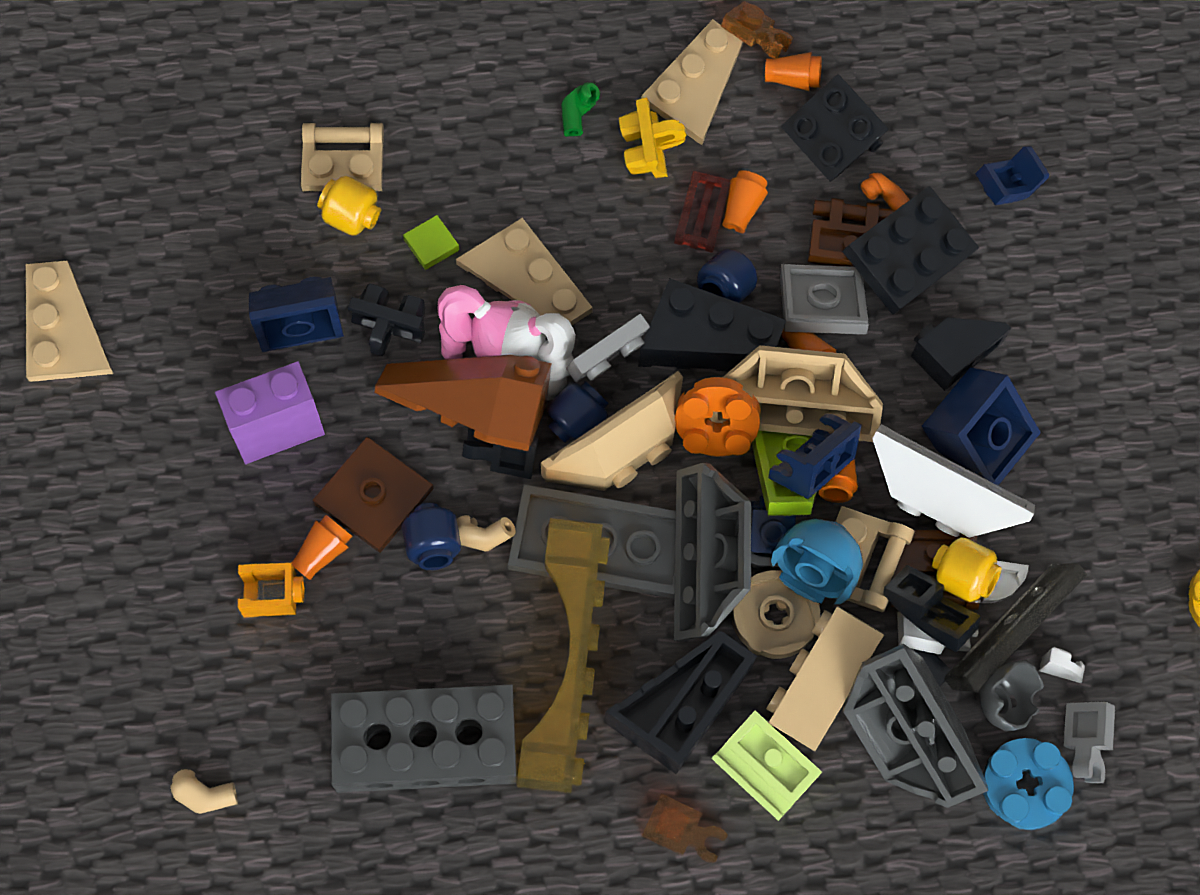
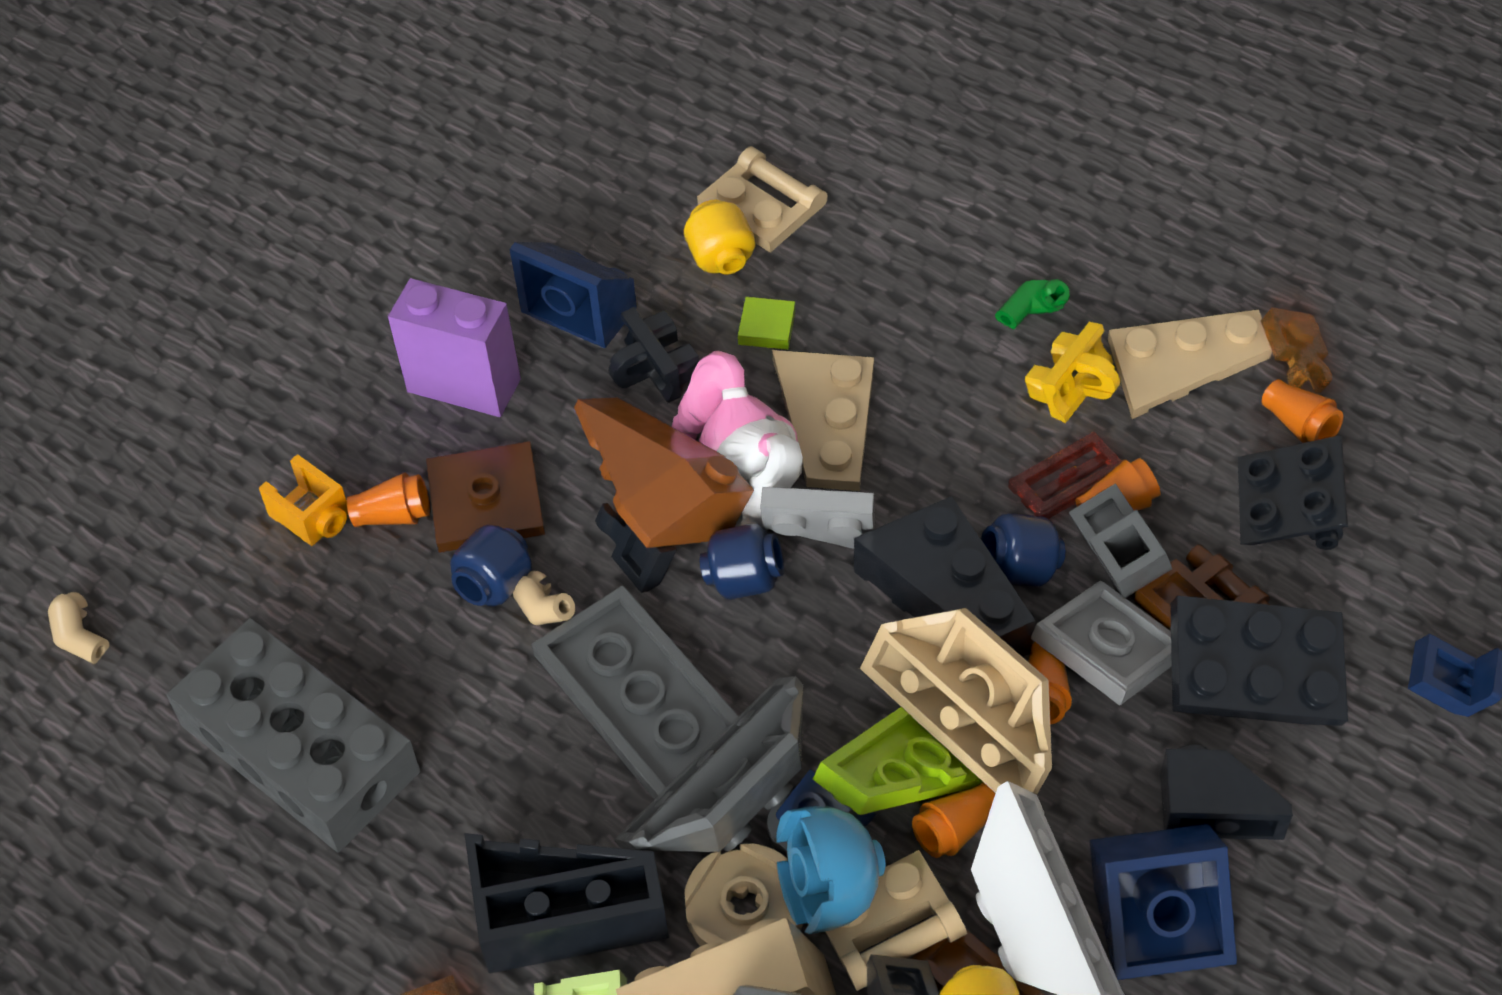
camera: 50 degrees right, 15 degrees down
(59, 327) = (377, 175): tan wing -> none
(550, 749) = (399, 836): clear yellow arch -> none
(620, 443) = (762, 613): tan wedge -> none
(714, 438) = (842, 666): orange plate -> none
(785, 235) = (1121, 541): none -> dark grey brick
(818, 458) = (924, 768): dark blue hinge -> none
(879, 184) = (1289, 577): orange arm -> none

